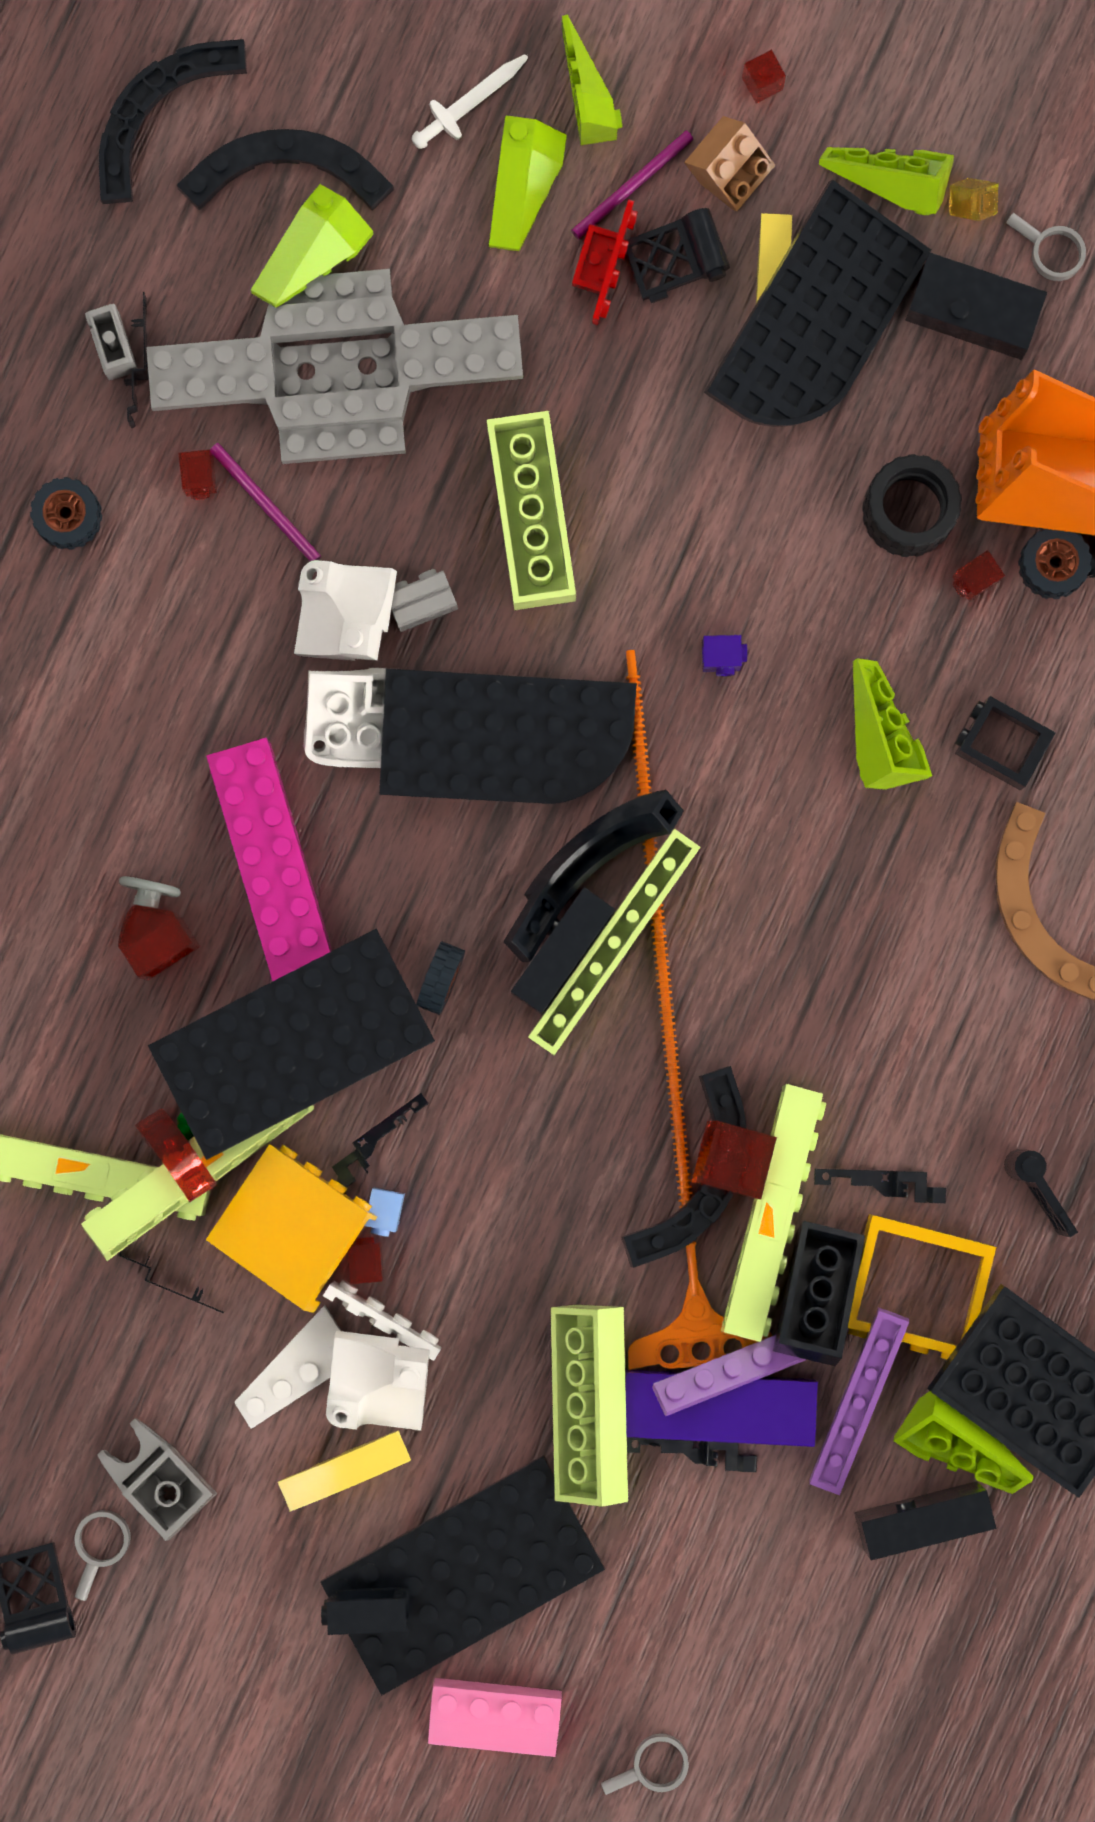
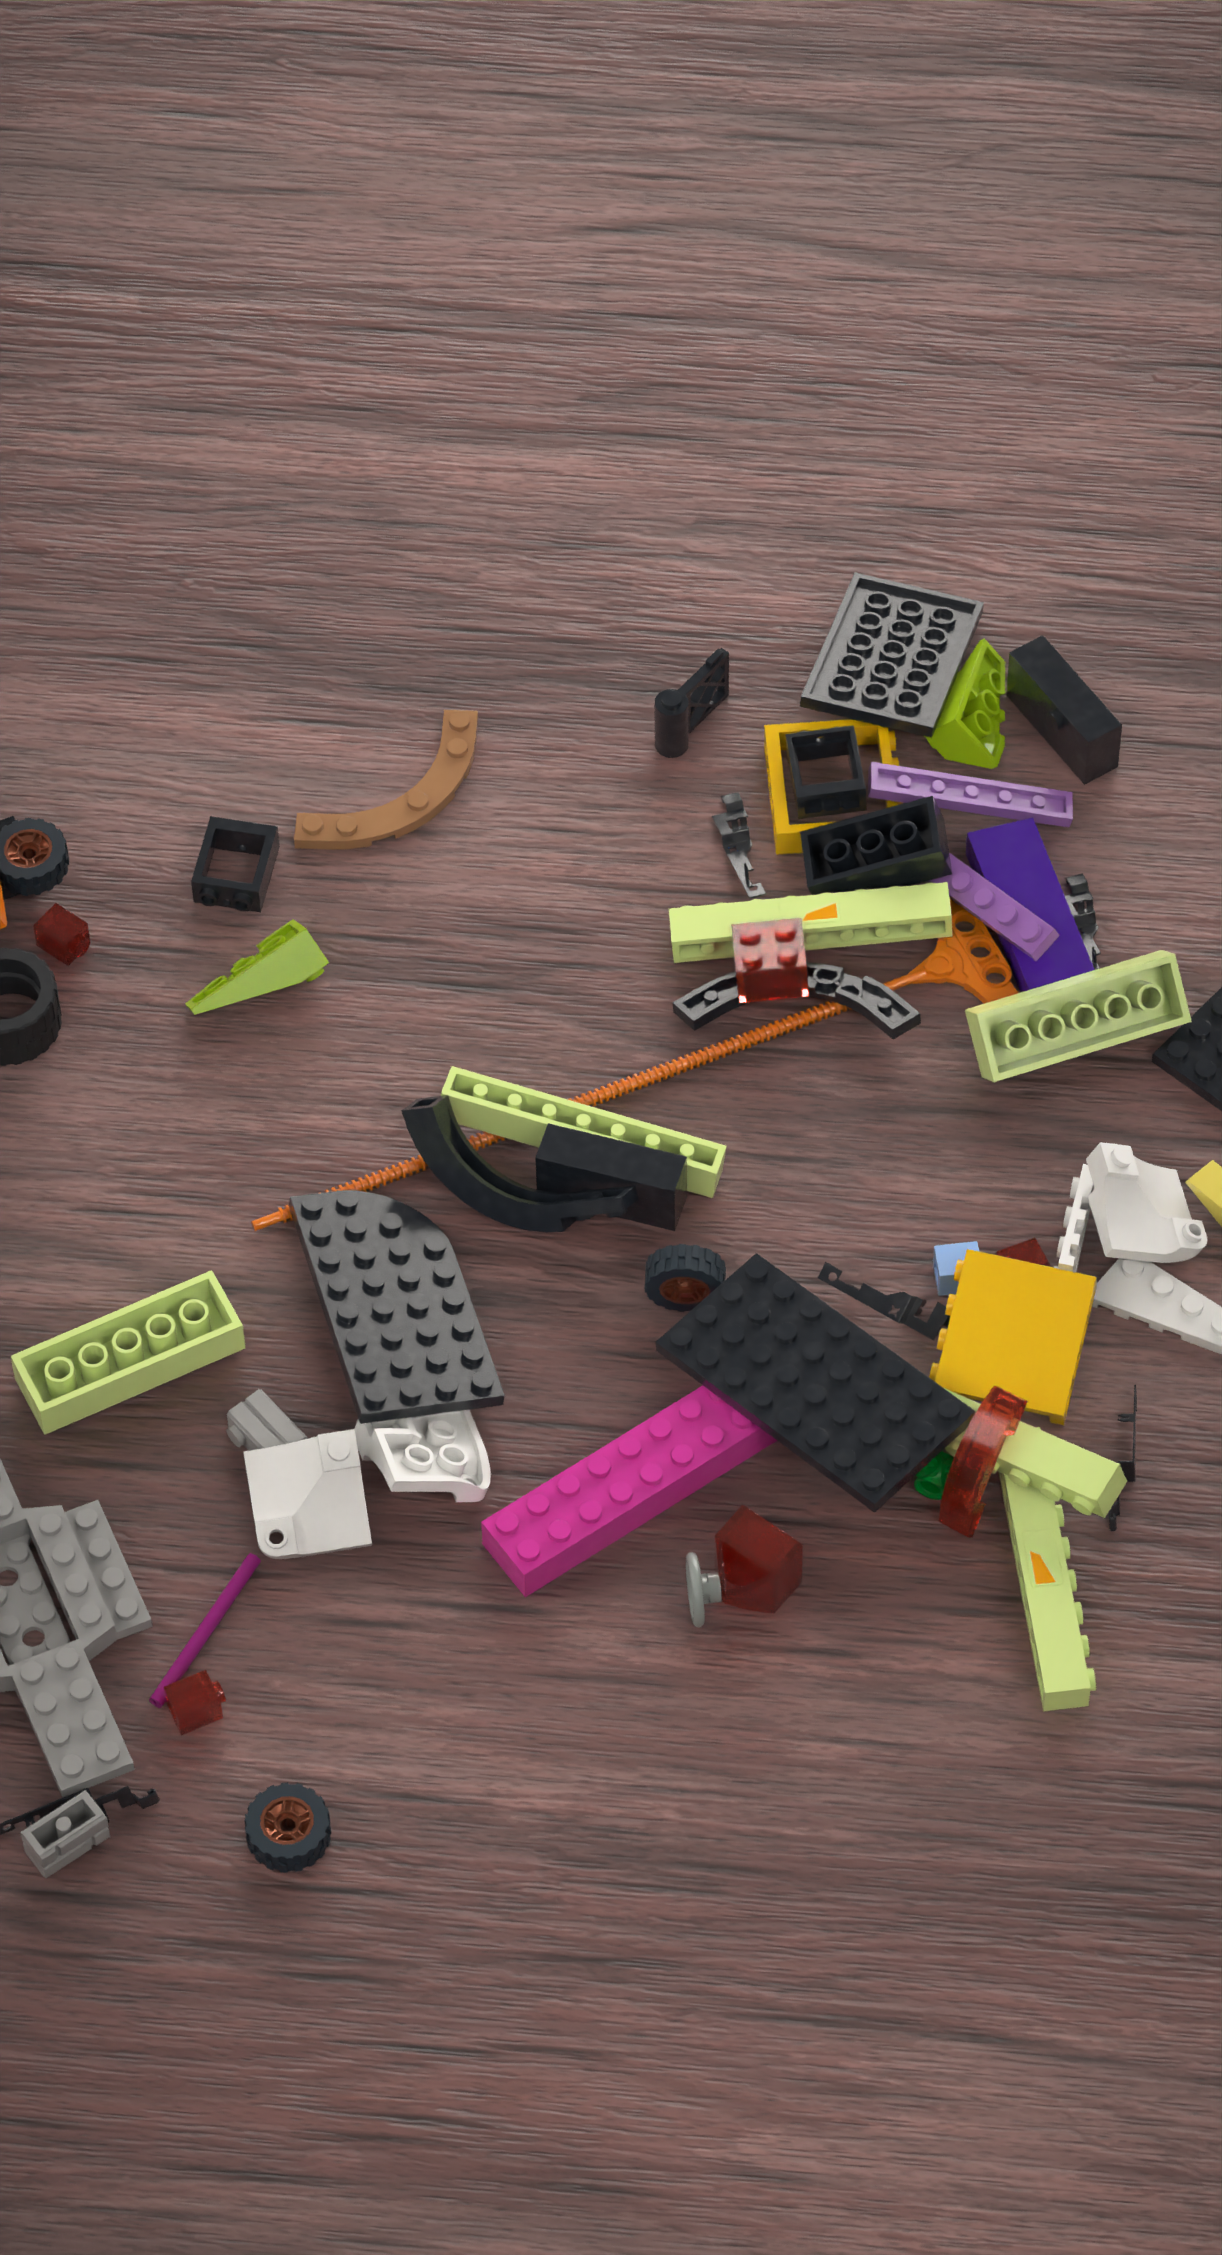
camera: 110 degrees left, 30 degrees down
(723, 654) = (228, 1136): dark purple brick -> none
(884, 1274) = (828, 797): none -> black window

